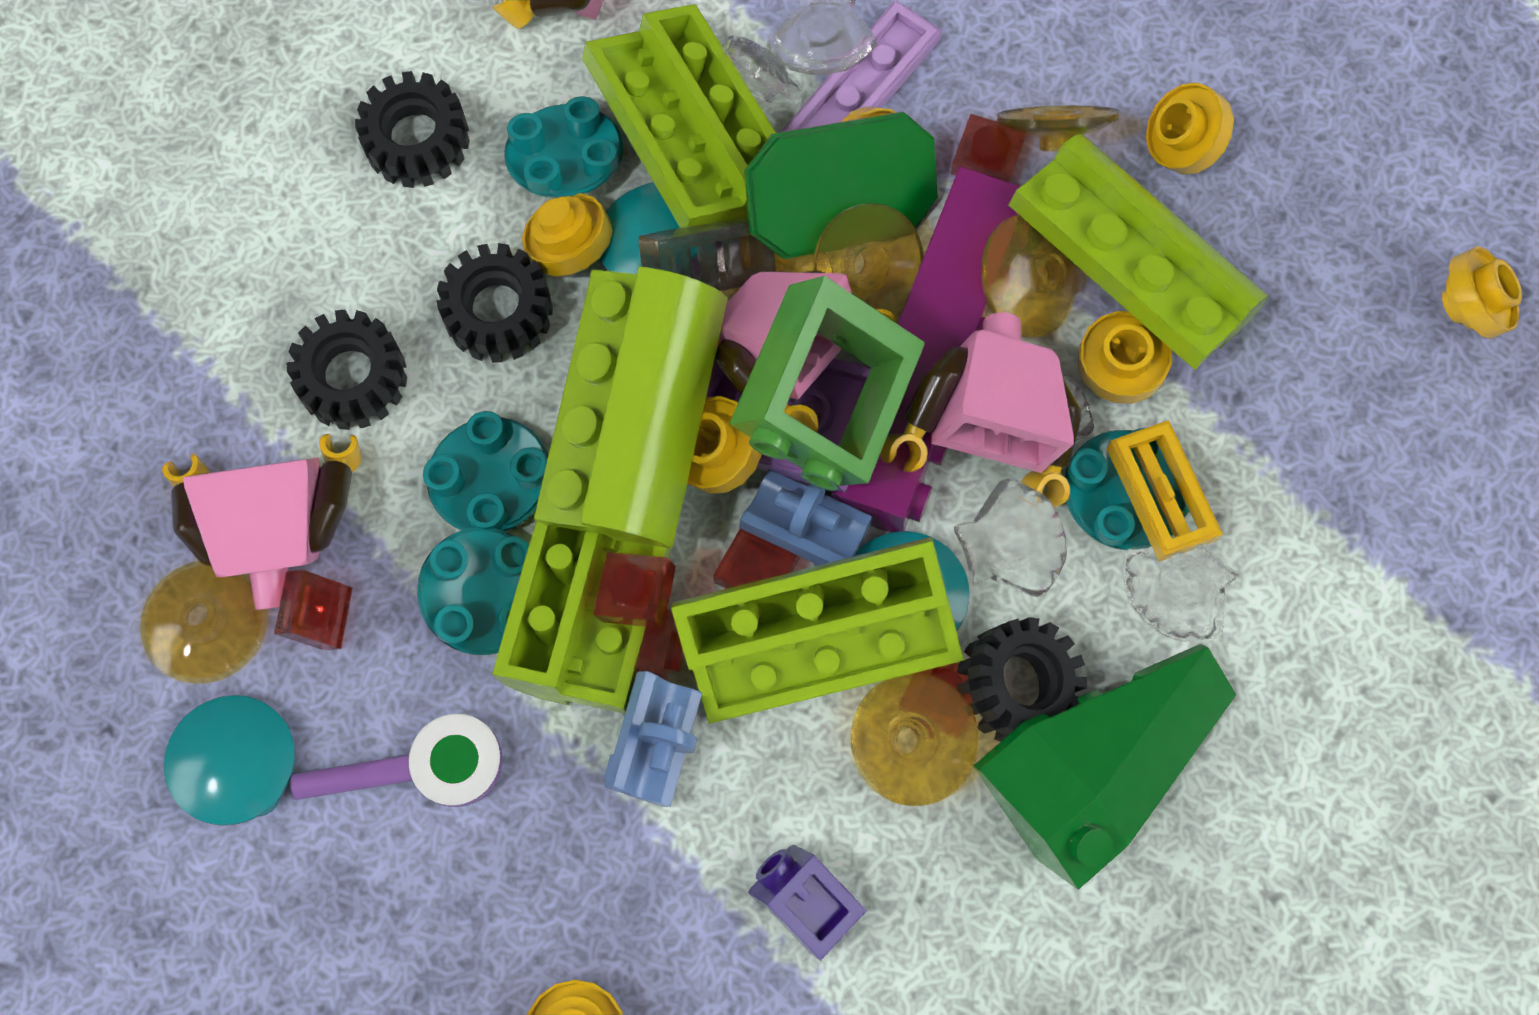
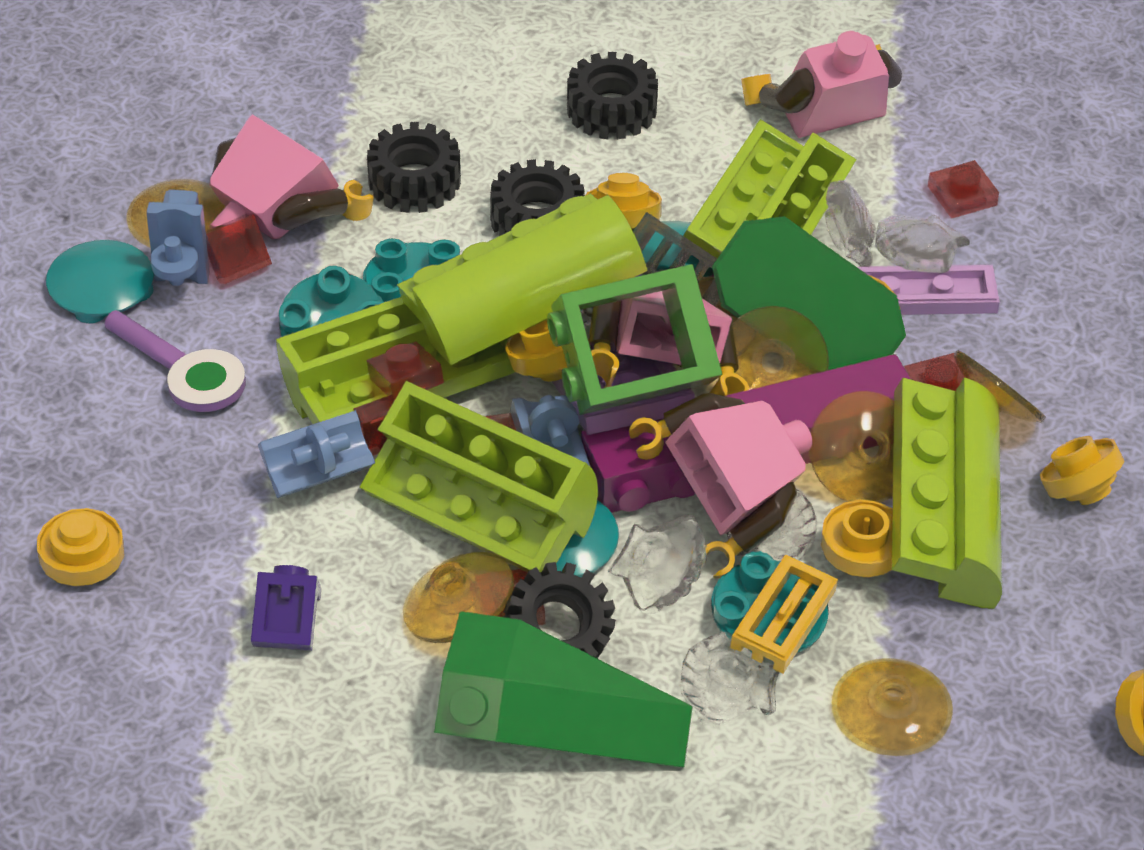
camera: 45 degrees right, 25 degrees down
(273, 665) = (178, 238): none -> medium blue hips
(563, 148) = (680, 169): teal dish -> none
(1279, 497) = (891, 723): none -> clear yellow dish

